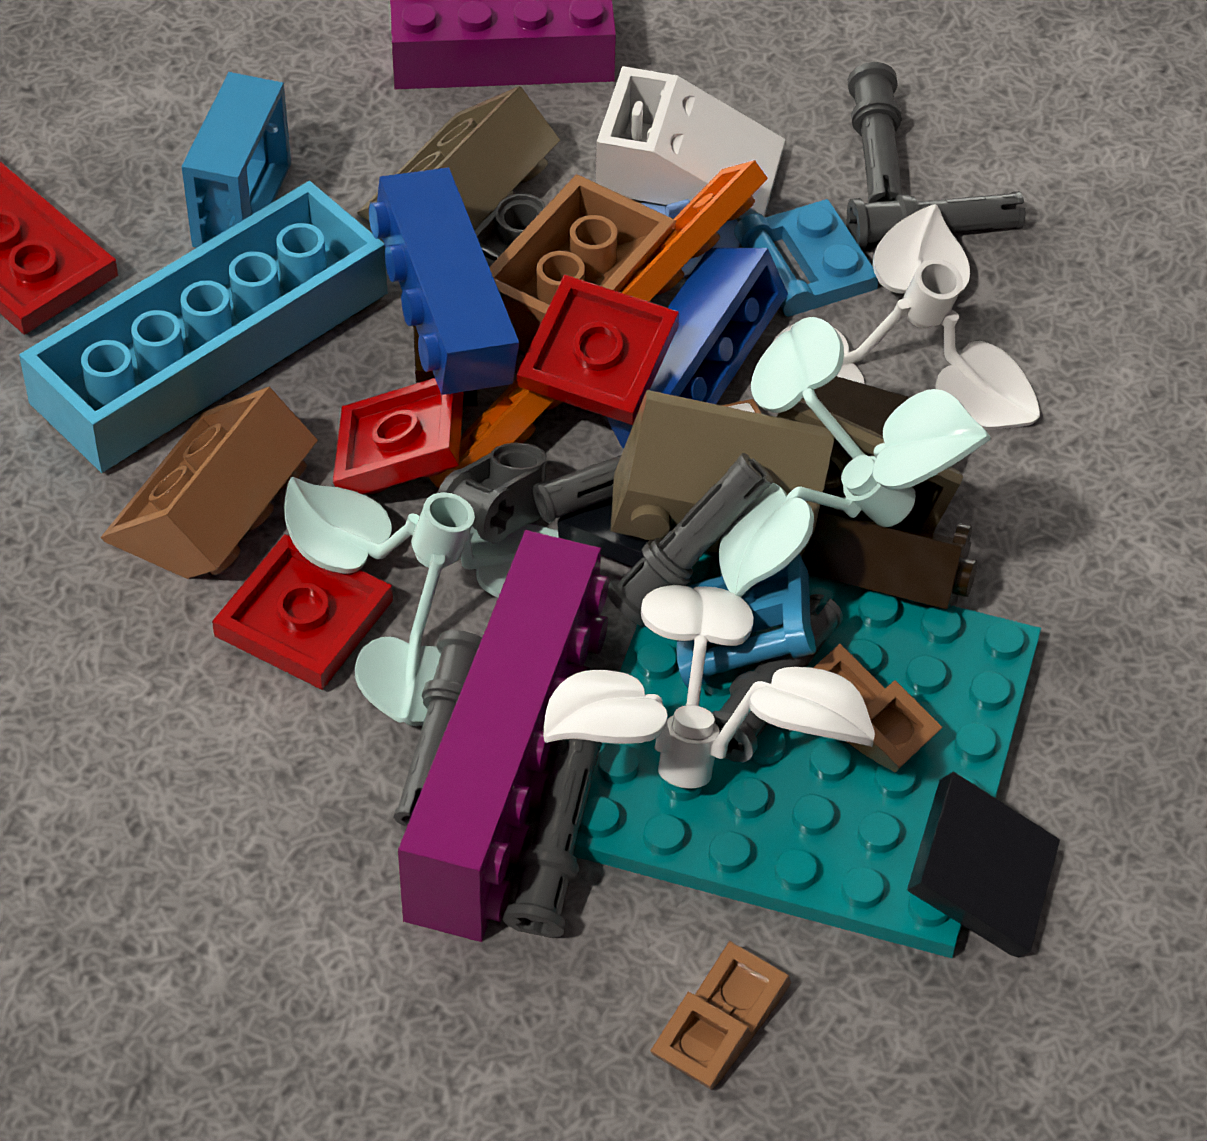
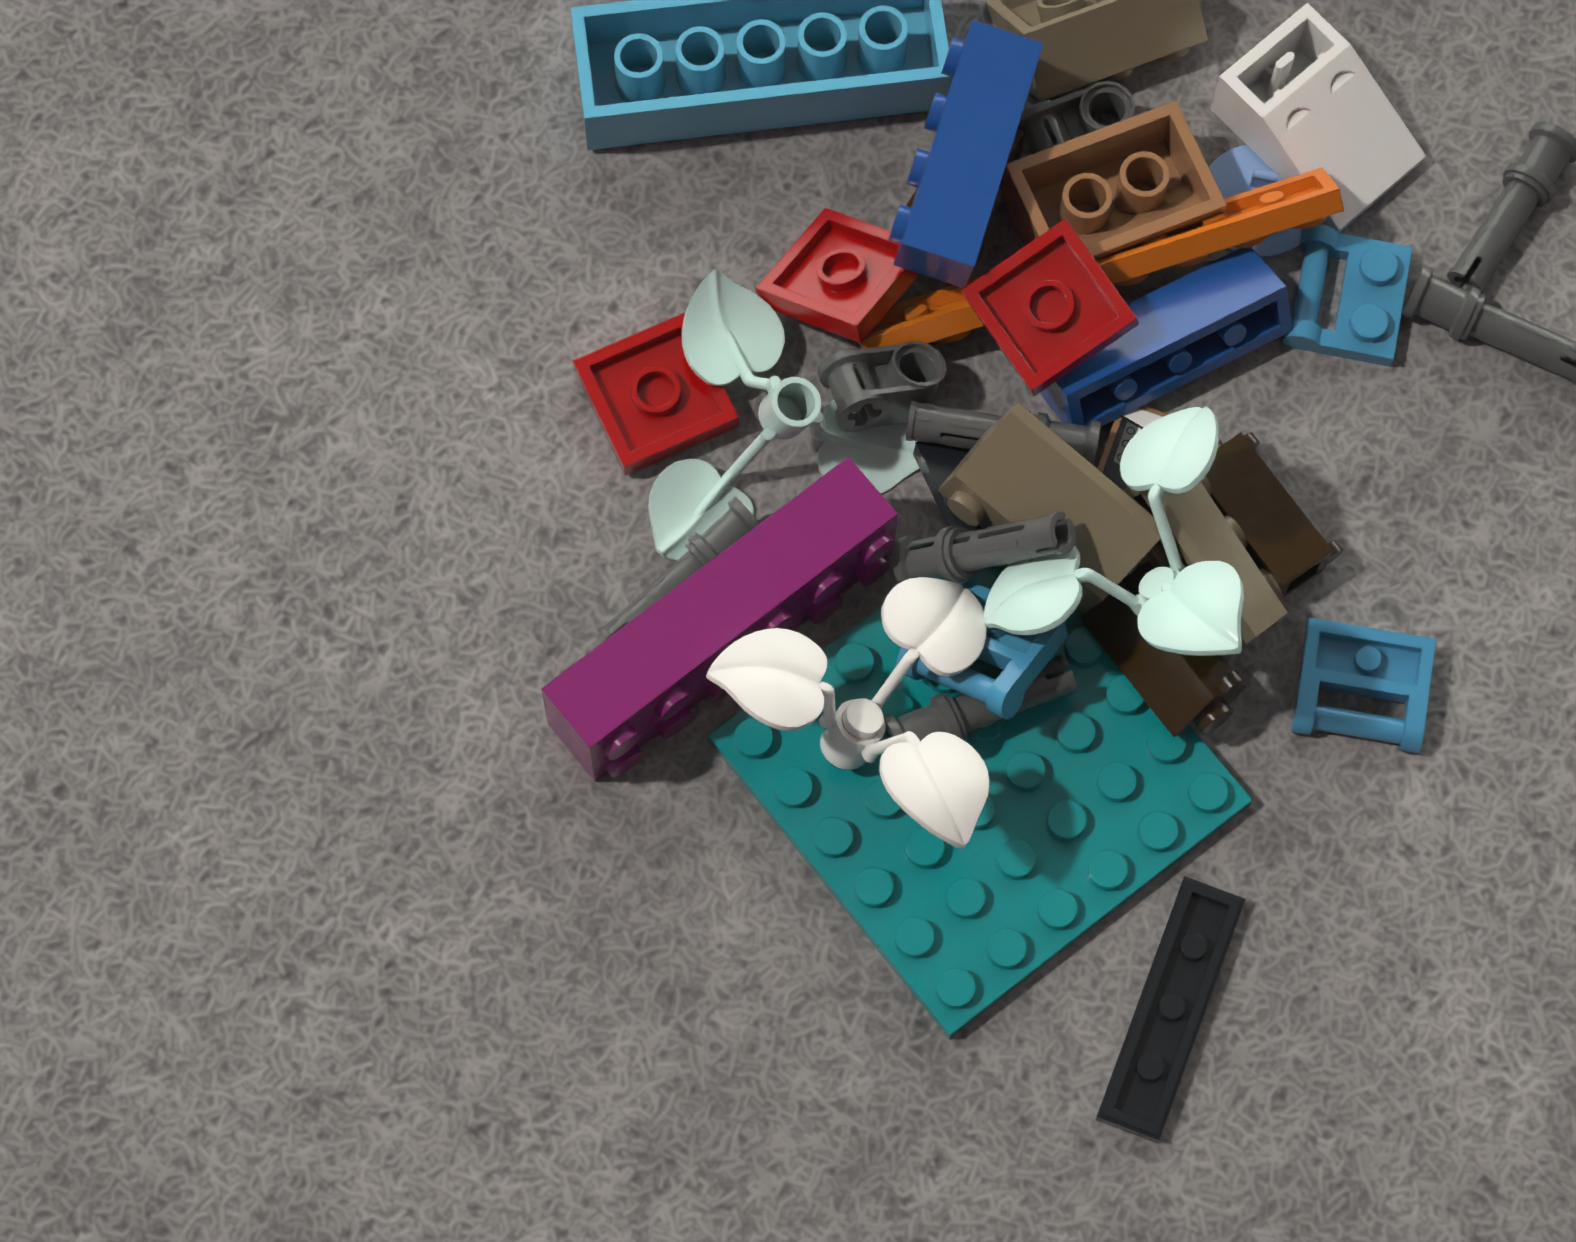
camera: 35 degrees right, 20 degrees up
(214, 486) = (662, 225): medium nougat slope -> none
(549, 861) = (682, 754): dark grey pin -> none
(722, 1016) = (727, 970): medium nougat slope -> none
(897, 718) = (1031, 787): medium nougat slope -> none
(932, 270) = (1443, 371): white plant -> none
(984, 865) = (1023, 984): black tile -> none
(1045, 485) = (1367, 665): none -> dark azure plate
(1112, 824) = (1170, 1010): none -> black tile

